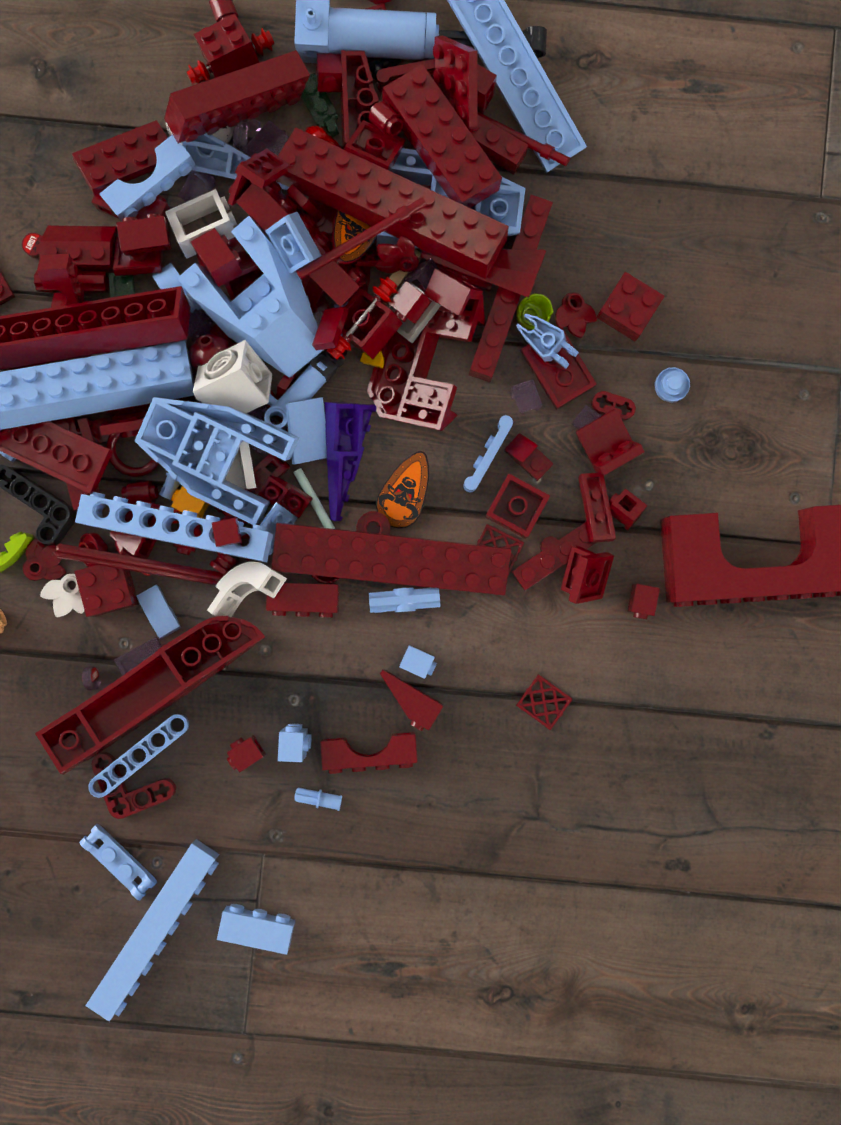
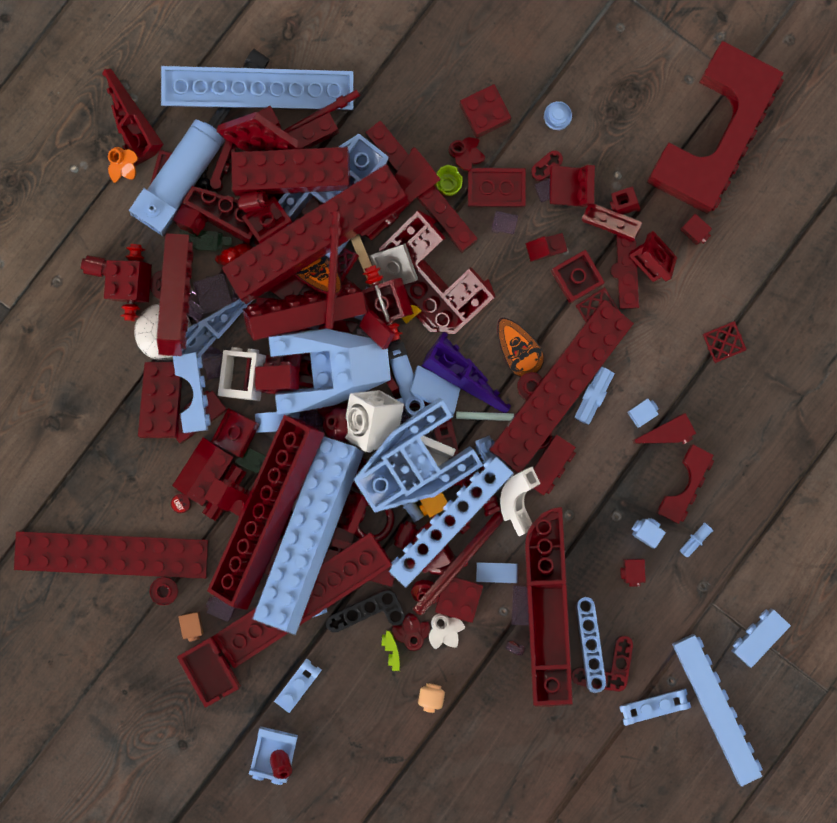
camera: 55 degrees left, 0 degrees up
(143, 235) = (229, 419): dark red brick -> none
(226, 532) = (479, 485): dark red tile -> none
(259, 171) = (245, 310): dark red bracket -> none
(286, 495) = (470, 433): dark red slope -> none
(293, 242) = (307, 318): light blue slope -> none
(304, 203) = (276, 293): dark red tile -> none
(397, 257) = (355, 250): dark red plate -> none
(409, 303) = (392, 263): brick -> none
(422, 273) = (377, 239): panel -> none
(451, 291) = (403, 229): panel -> none
(493, 445) = (524, 267): light blue plate -> none
(546, 340) = (478, 184): light blue hinge -> none

